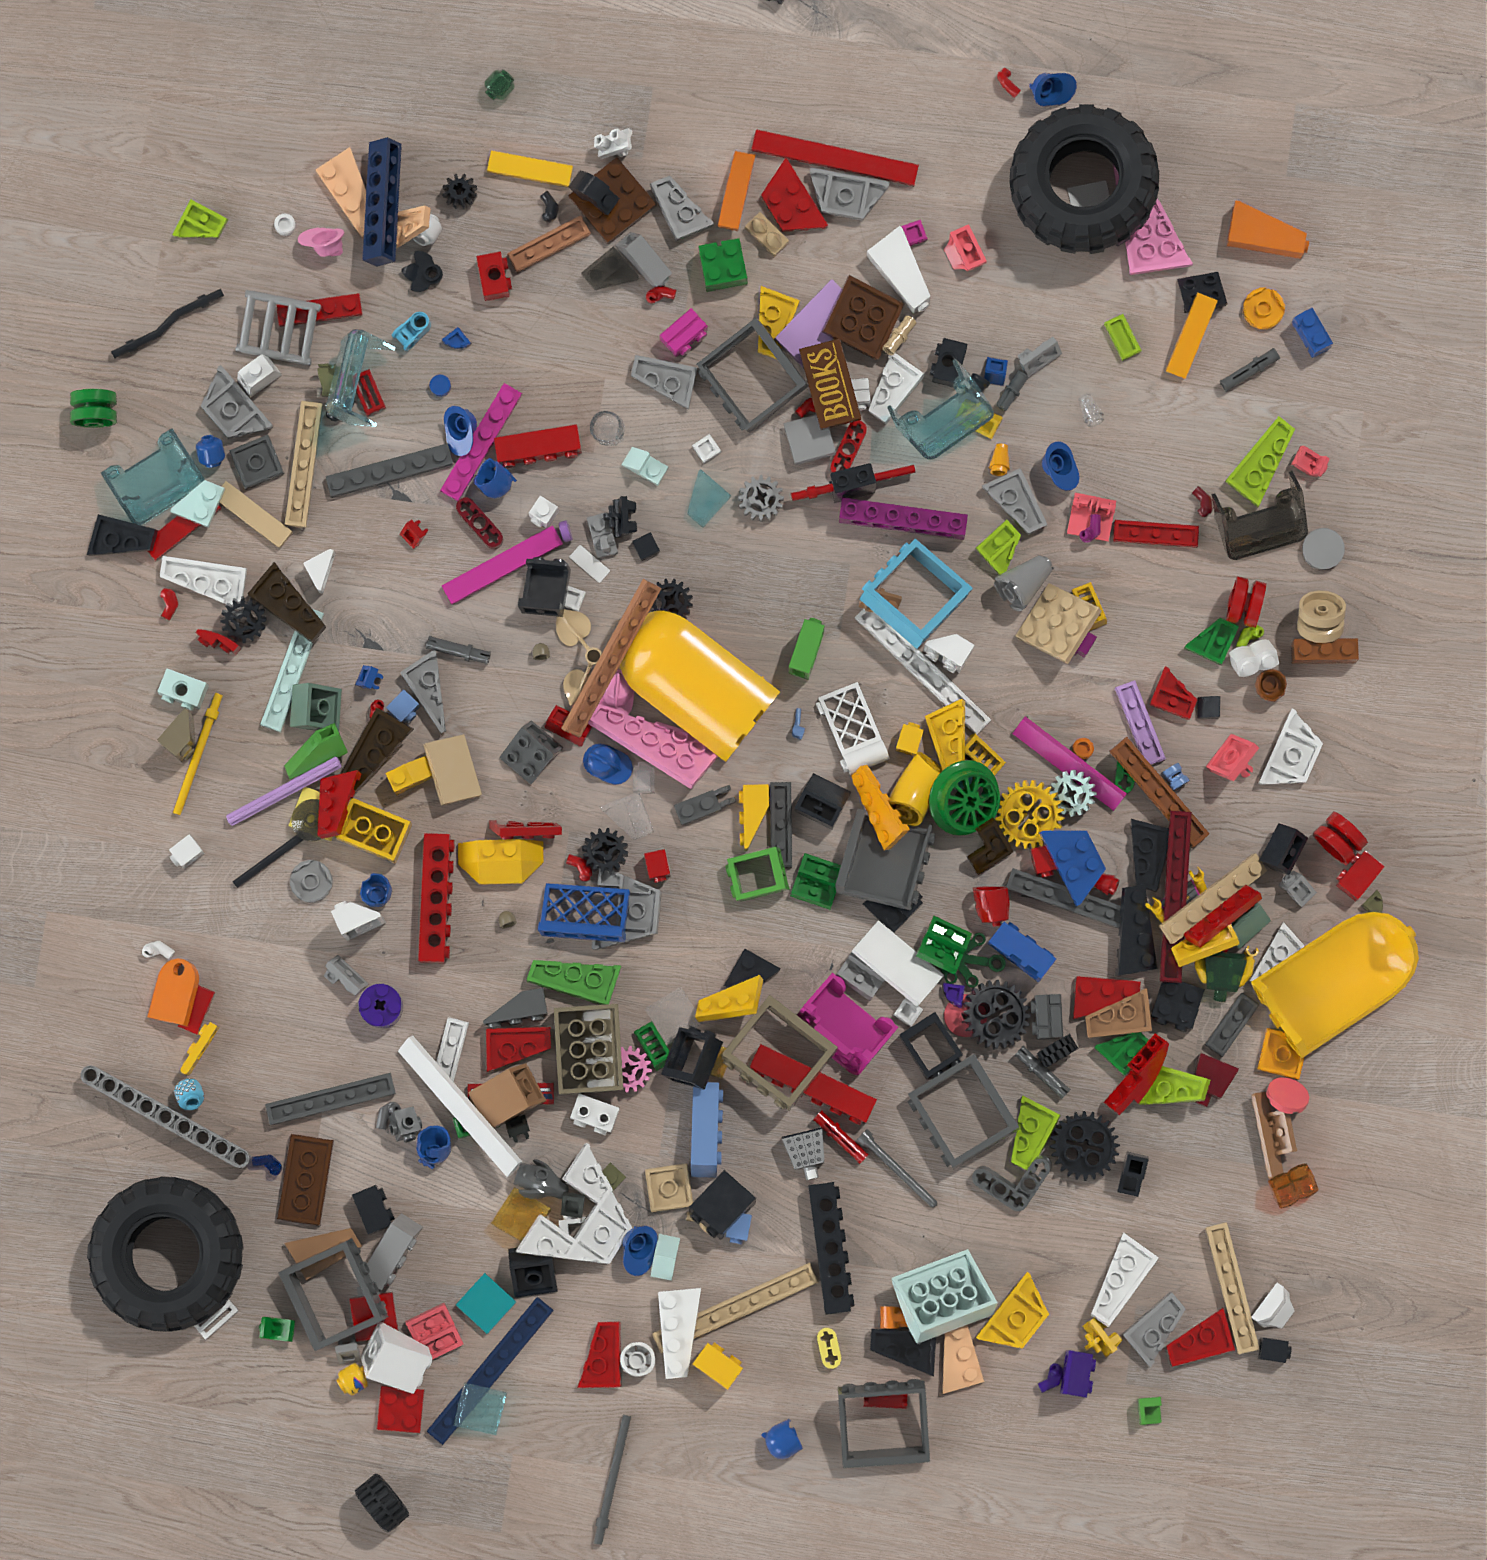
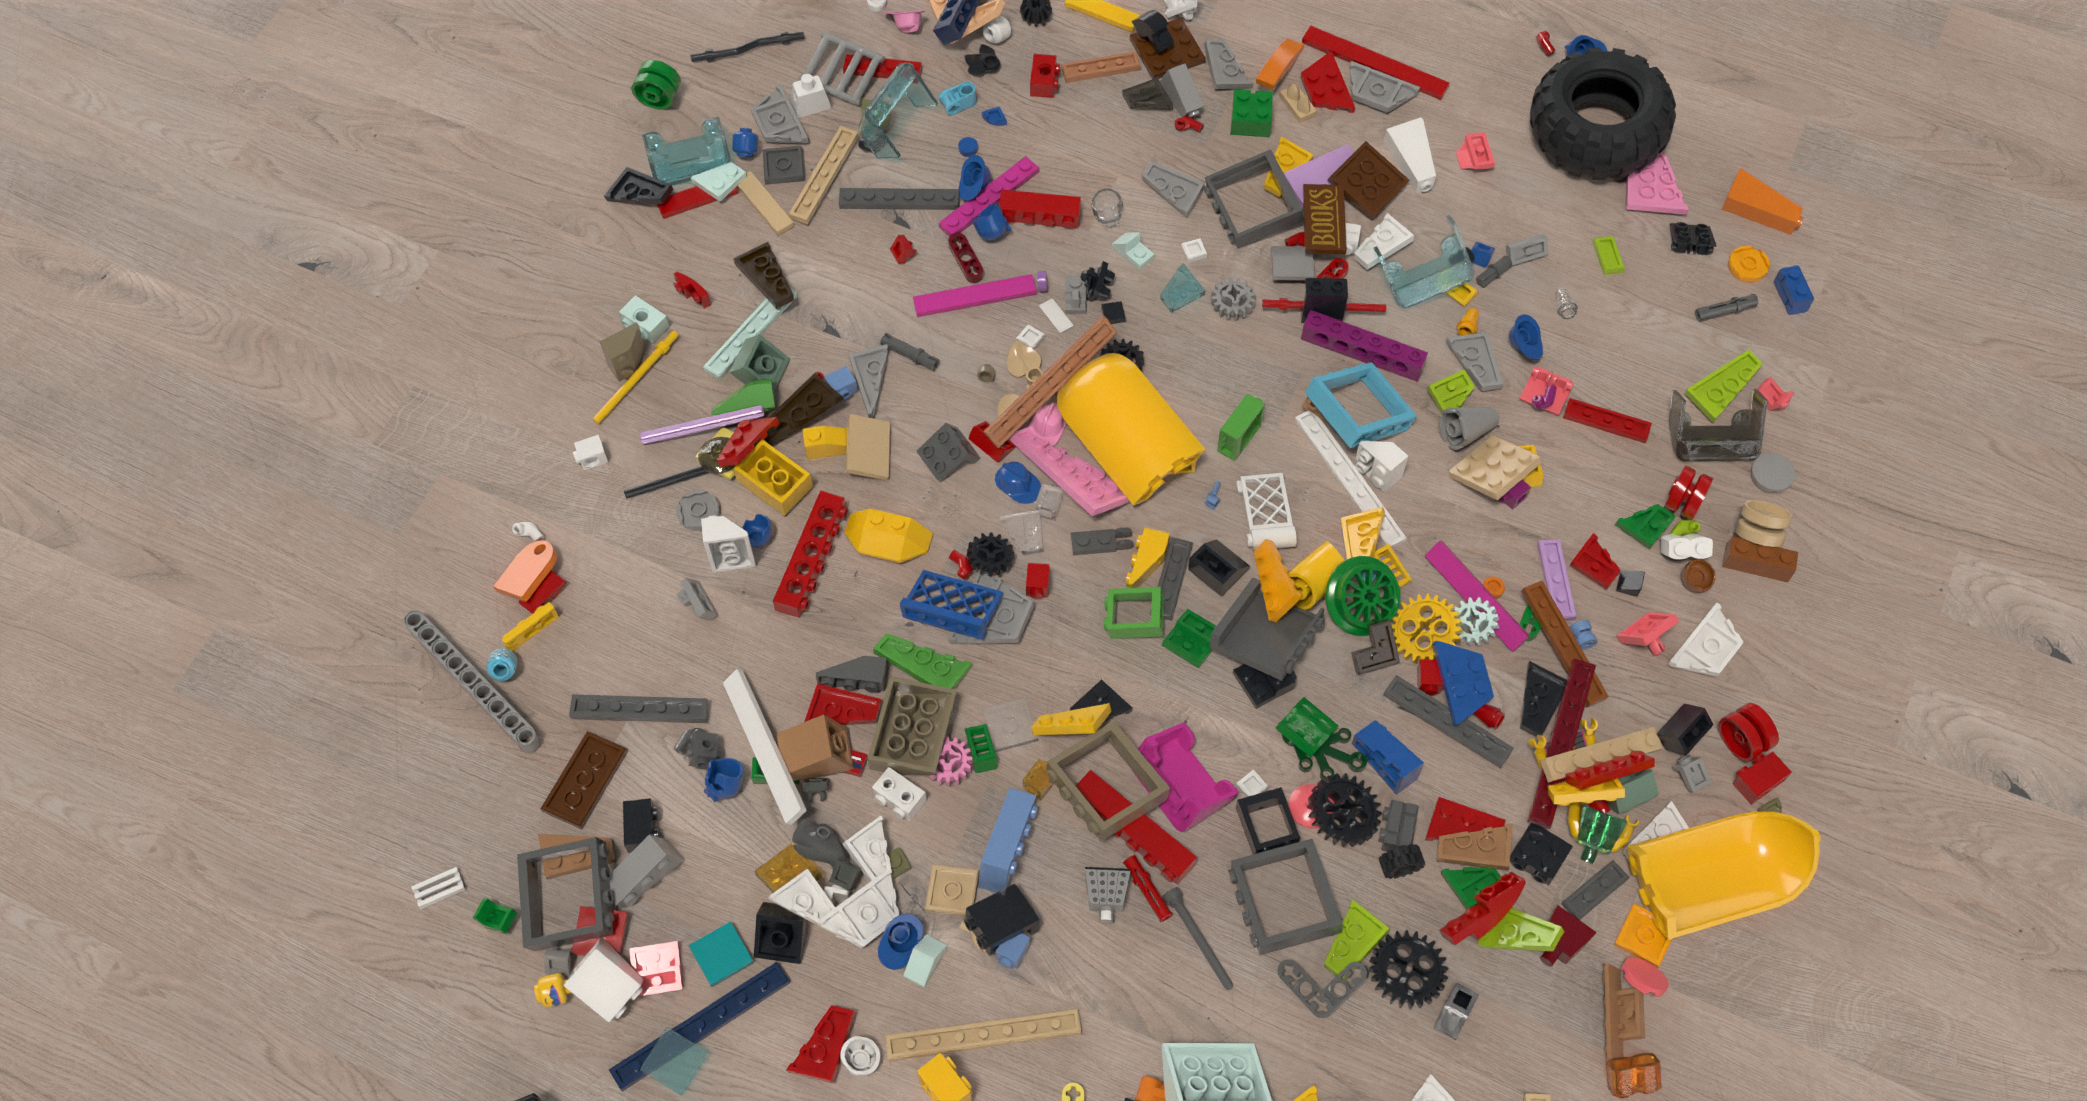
camera: 15 degrees right, 20 degrees down
(112, 1254) = (381, 763): black tyre -> none
(171, 603) = (663, 252): red arm -> none
(206, 578) = (705, 241): white wing -> none
(236, 616) = (726, 271): black gear -> none
(269, 1162) = (554, 751): clear blue arm -> none
(319, 568) = (808, 255): white slope -> none
(367, 677) = (818, 351): blue tile -> none
(368, 1005) = (721, 634): dark purple brick -> none
(374, 409) = (902, 149): red tile -> none
(400, 1410) = (590, 1039): red plate -> none
(452, 1046) = (778, 693): white tile -> none
(507, 919) = (873, 592): dark tan hinge -> none
(513, 828) = (919, 513): red wing -> none
(543, 512) = (1027, 259): white brick -> none
(545, 587) = (1008, 318): black panel -> none
(551, 207) = (1111, 41): black arm -> none
(678, 1324) = (916, 1029): white wing -> none
(680, 1051) = (997, 771): black window -> none
(684, 333) = (1200, 155): dark pink brick -> none
(831, 1192) = (1108, 938): black brick -> none
(860, 977) = (1219, 733): light grey slope -> none
(897, 963) = (1254, 733): white tile -> none
(899, 335) = (1398, 202): tan pin -> none
(909, 739) = (1320, 531): yellow brick -> none
(914, 232) = (1434, 132): dark pink tile -> none
(952, 350) = (1437, 231): black brick -> none
(954, 994) = (1305, 780): dark purple tile -> none
(992, 904) = (1366, 701): red helmet -> none
(1034, 1065) = (1374, 873): dark grey pin -> none
(1136, 941) = (1510, 776): black wing -> none
(1191, 335) = (1676, 263): light orange tile -> none
(1205, 502) = (1662, 403): dark red arm -> none

